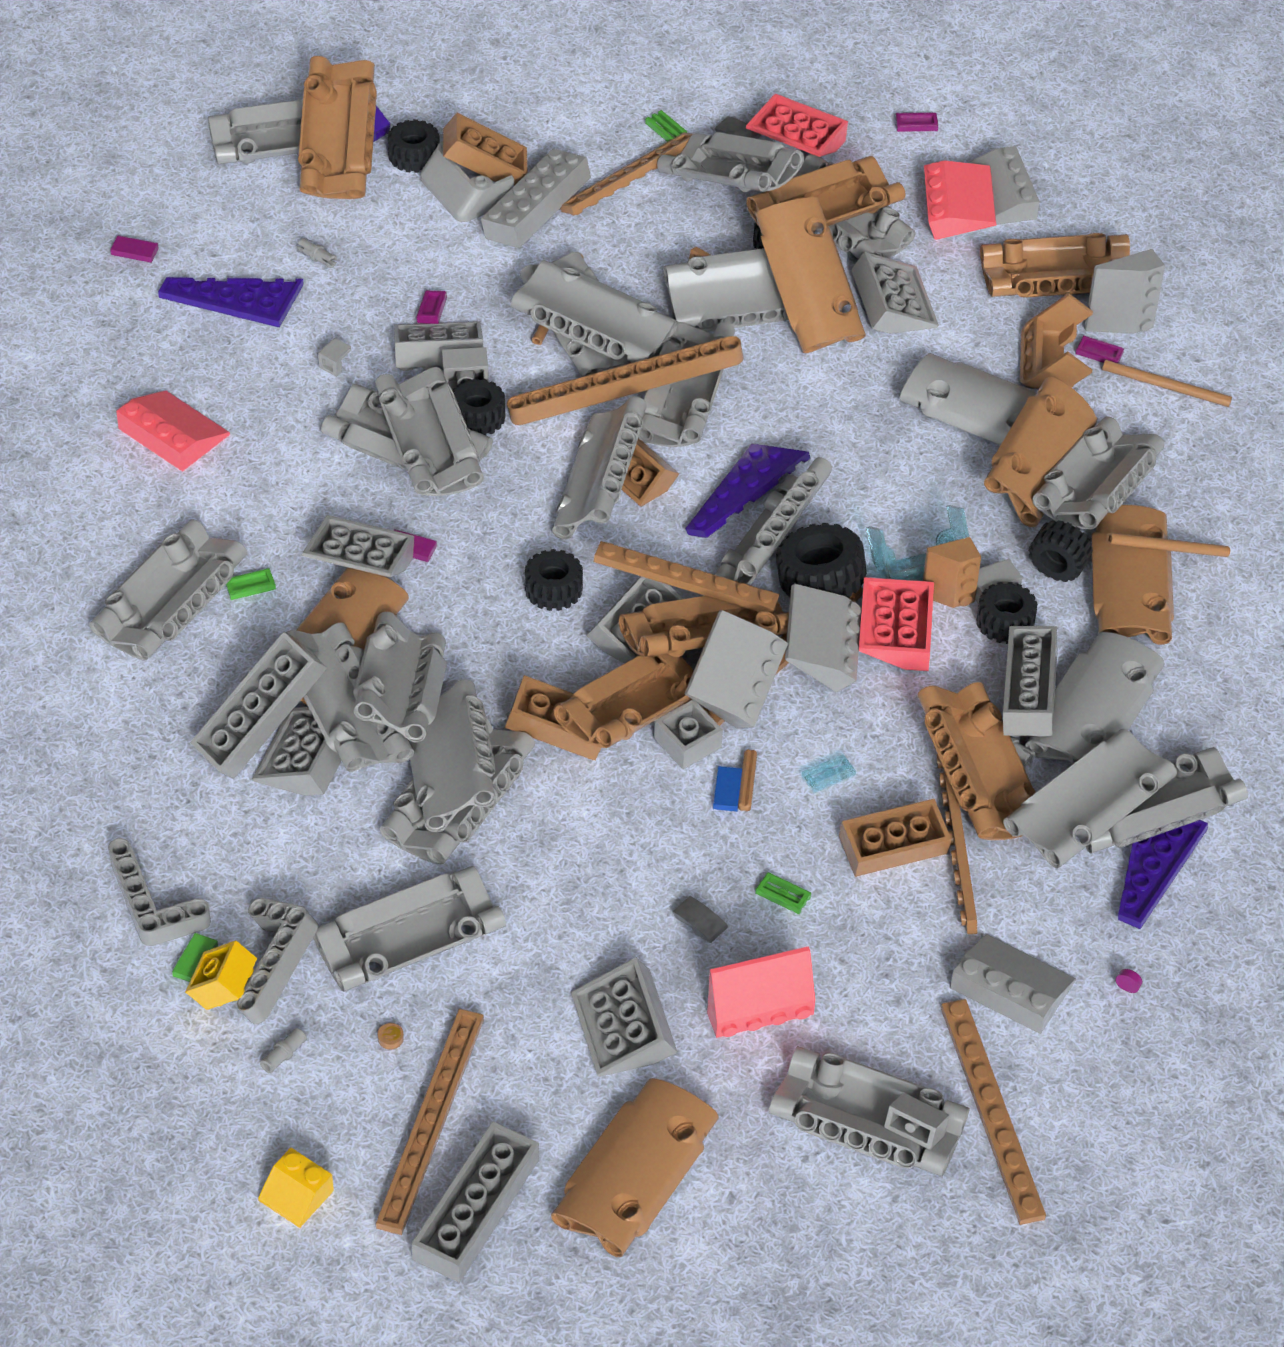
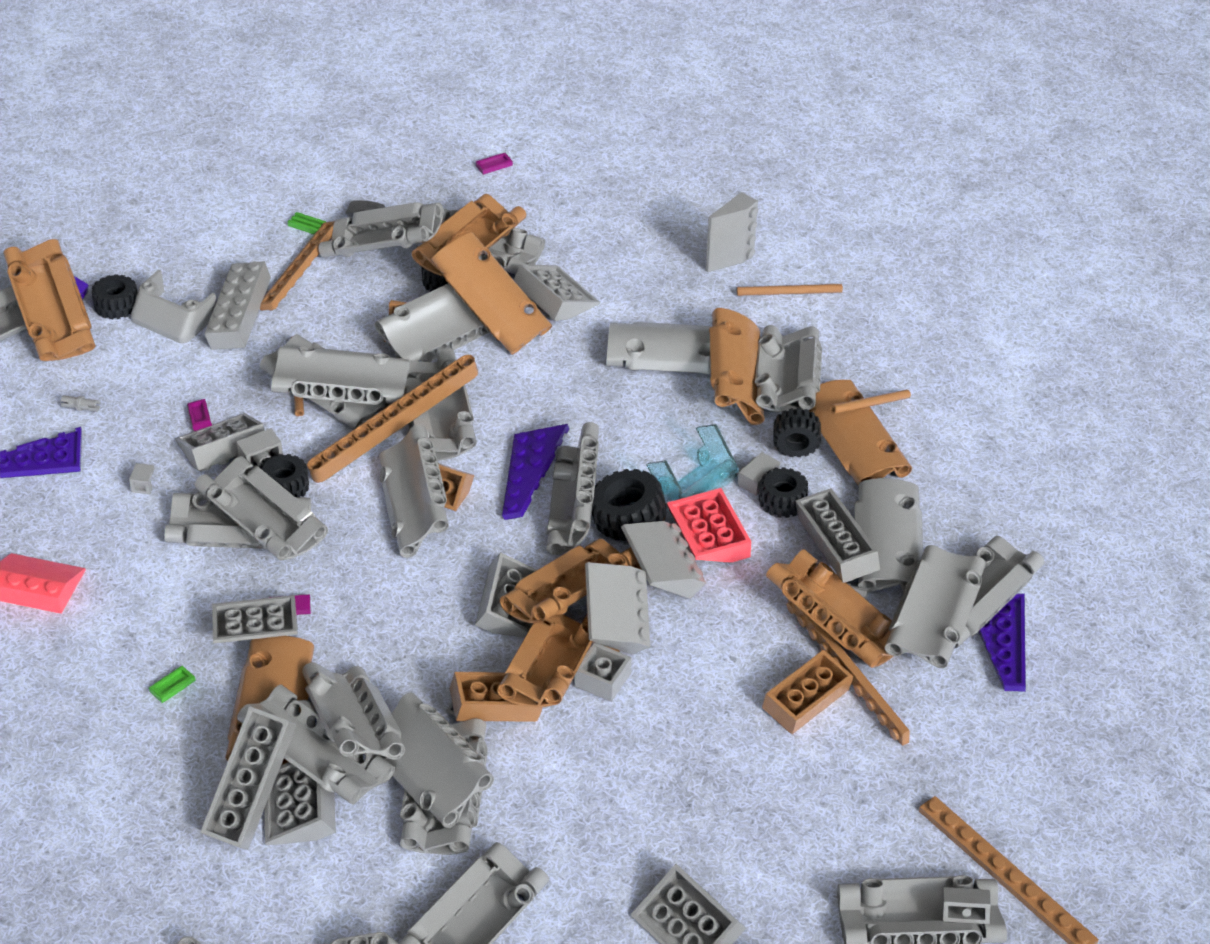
camera: 25 degrees left, 5 degrees down
(167, 591) = (106, 715): light grey panel -> none
(483, 150) = (178, 280): medium nougat brick -> none
(553, 592) = (424, 602): black tyre -> none
(685, 577) = (533, 550): medium nougat plate -> none
(701, 919) = (699, 813): flat silver slope -> none
(727, 788) = (655, 703): blue tile -> none
(747, 780) = (666, 691): medium nougat axle -> none
(761, 992) = (787, 853): coral slope -> none
(780, 895) = (747, 771): bright green tile -> none
(799, 126) = (412, 188): coral slope -> none
(830, 776) = (716, 673): clear light blue tile -> none
(954, 572) = (733, 473): medium nougat slope -> none
(959, 198) = (562, 206): coral slope -> none
(1011, 982) = (960, 770): light grey slope -> none
(1012, 188) = (584, 191): light grey slope -> none
(1044, 344) = (684, 289): medium nougat windscreen -> none
(1048, 264) = (657, 232): medium nougat panel -> none
(1099, 350) = (726, 282): magenta tile -> none
(1129, 980) = (1043, 733): magenta tile -> none

